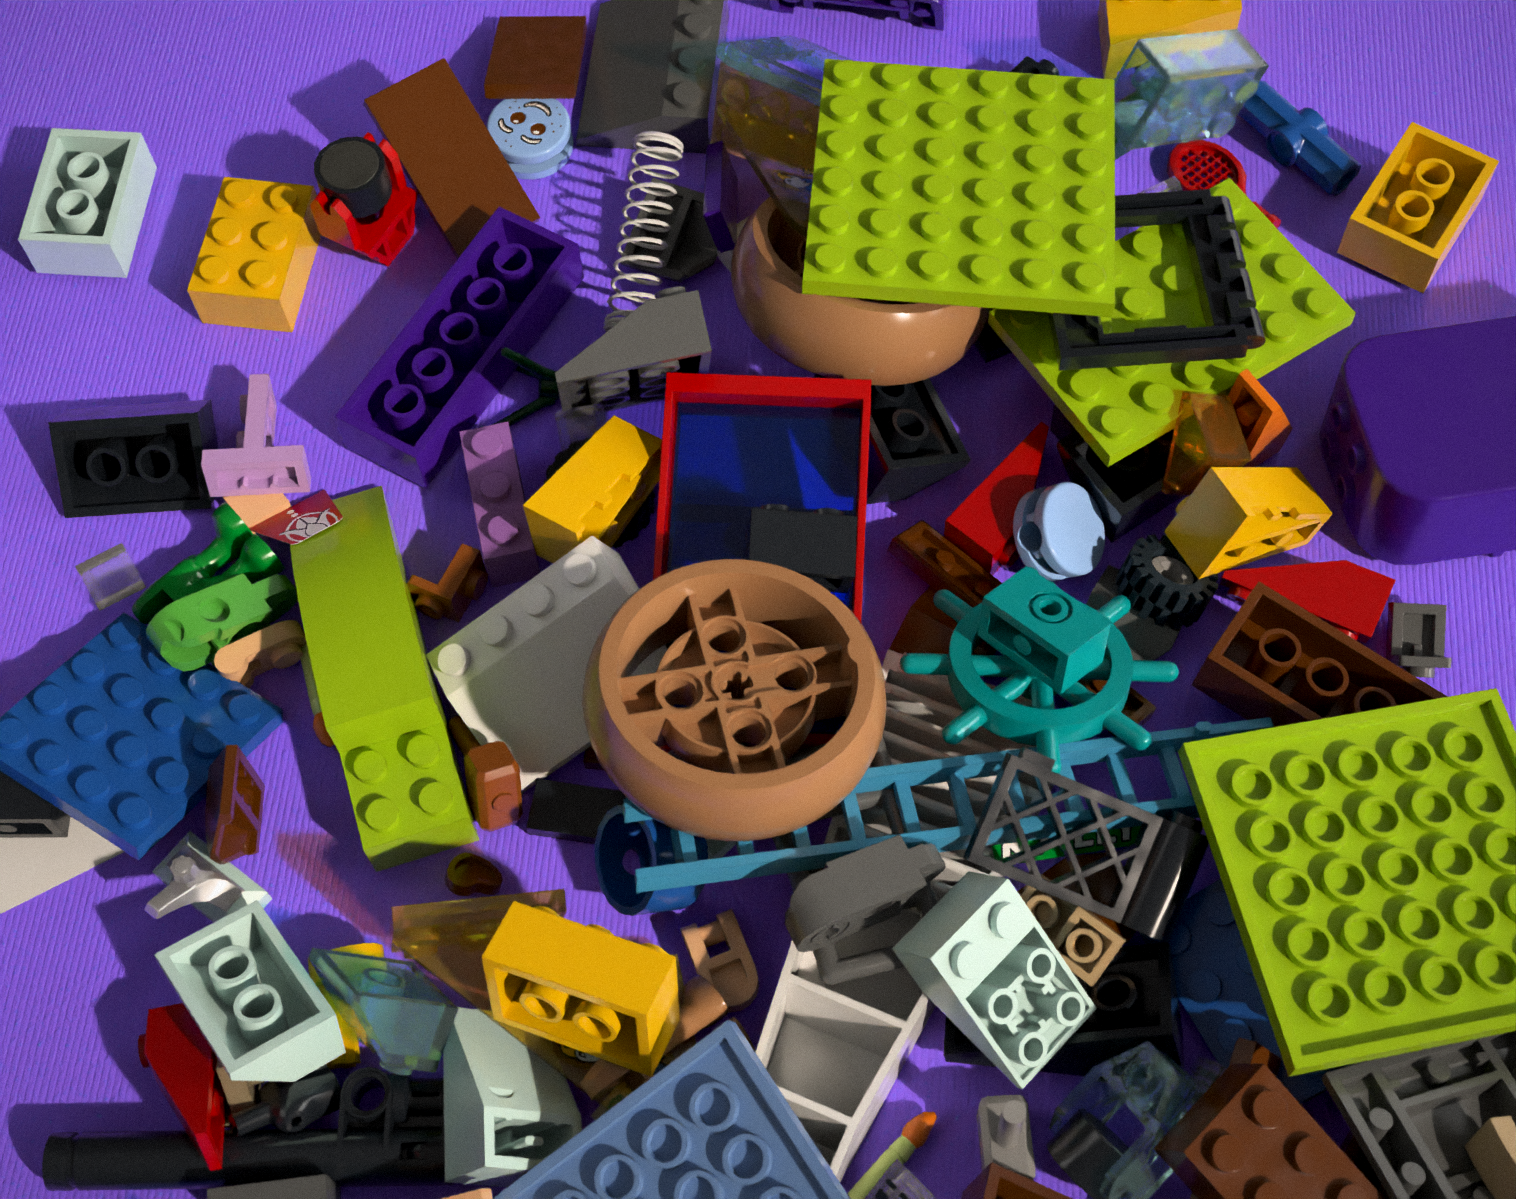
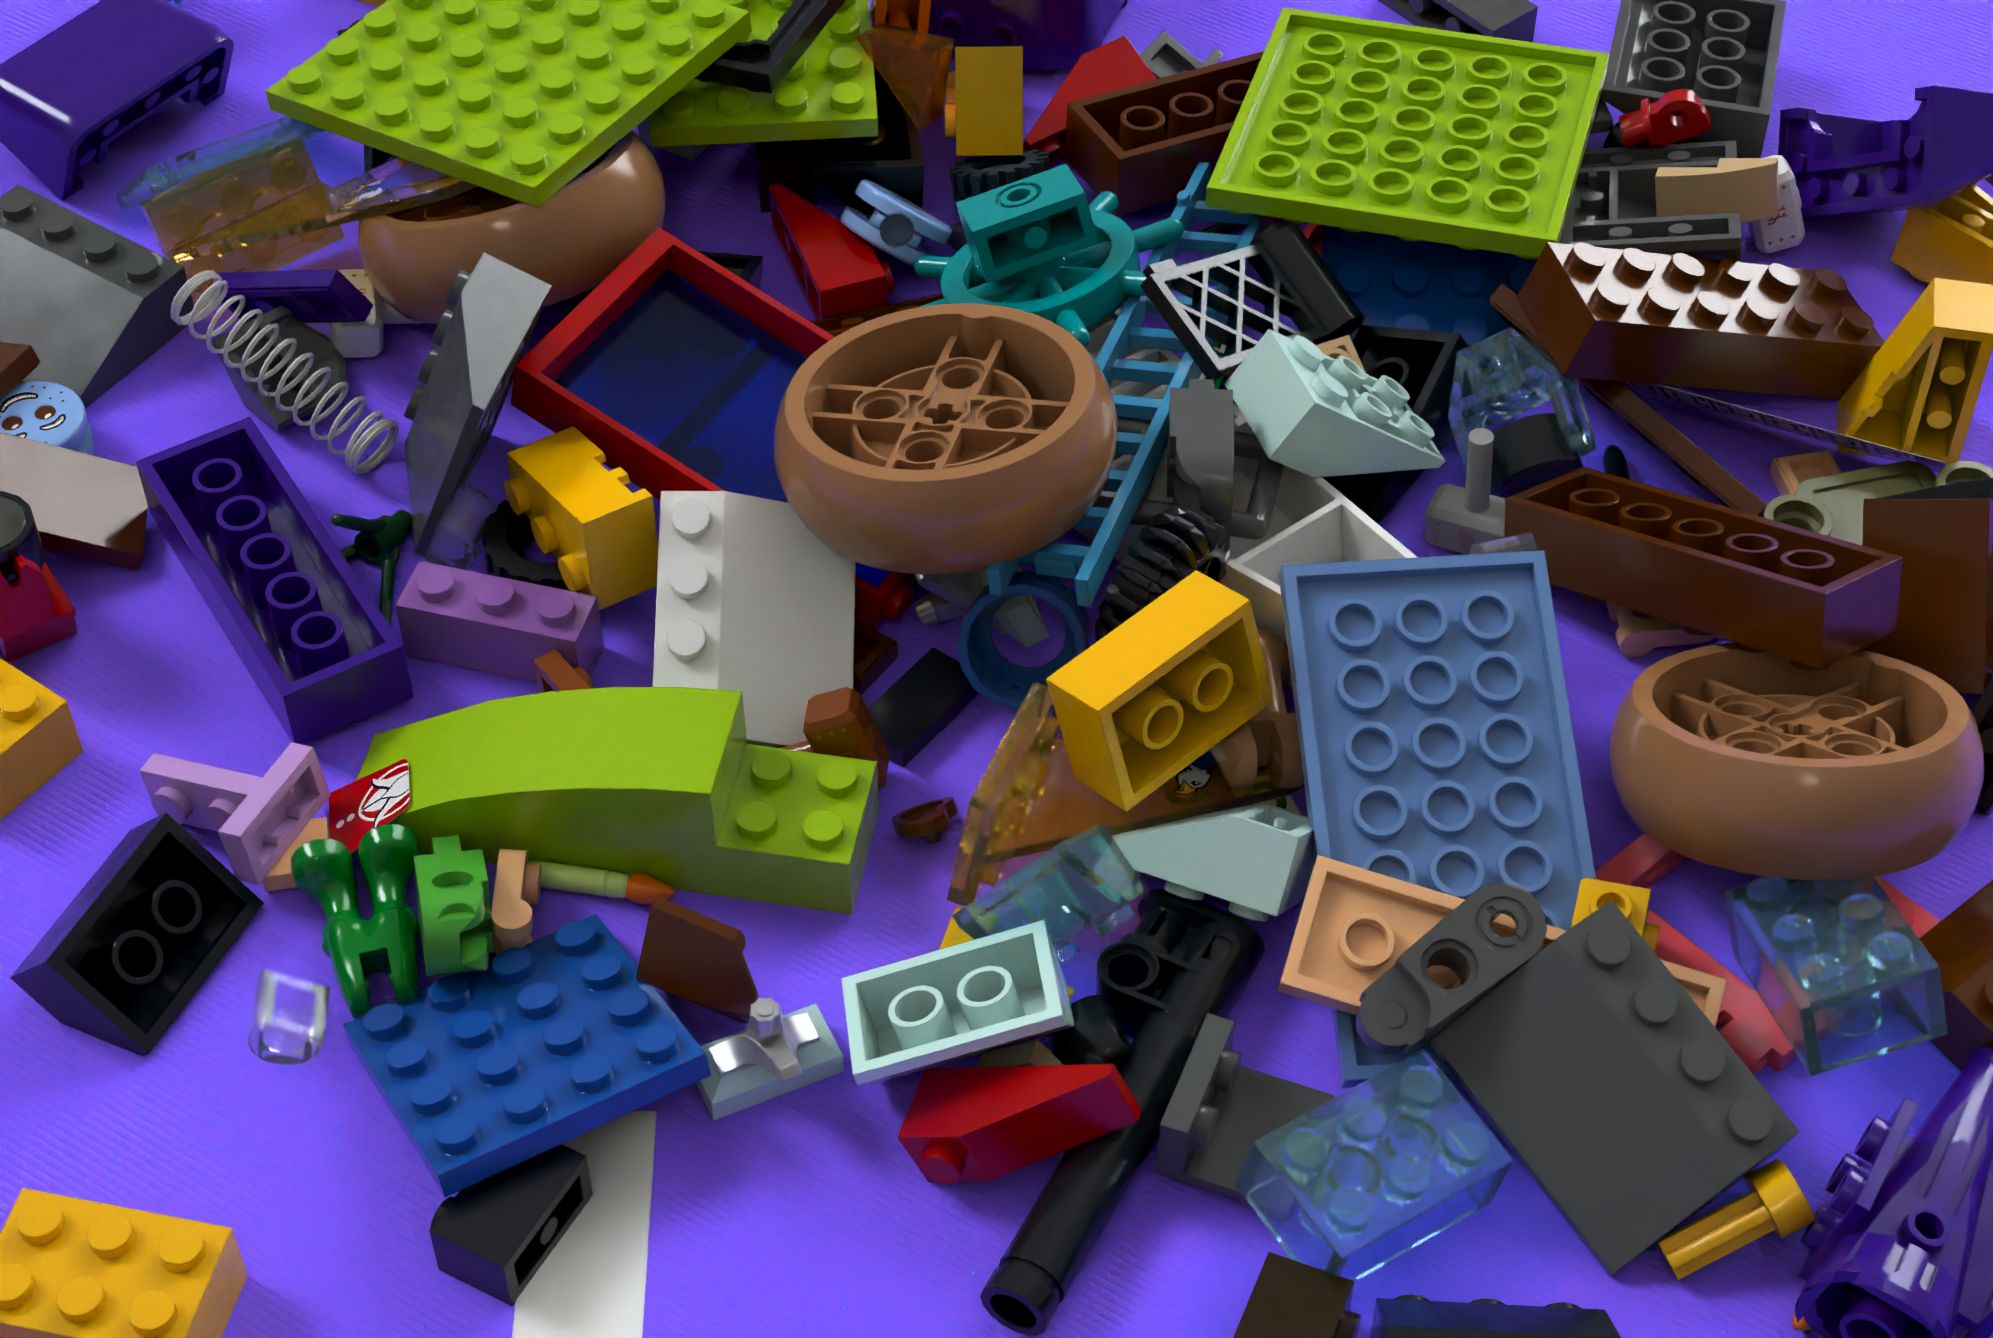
camera: 65 degrees left, 15 degrees down
(717, 934) = (1161, 558): none -> black gear
(809, 543) = (768, 364): black brick -> none

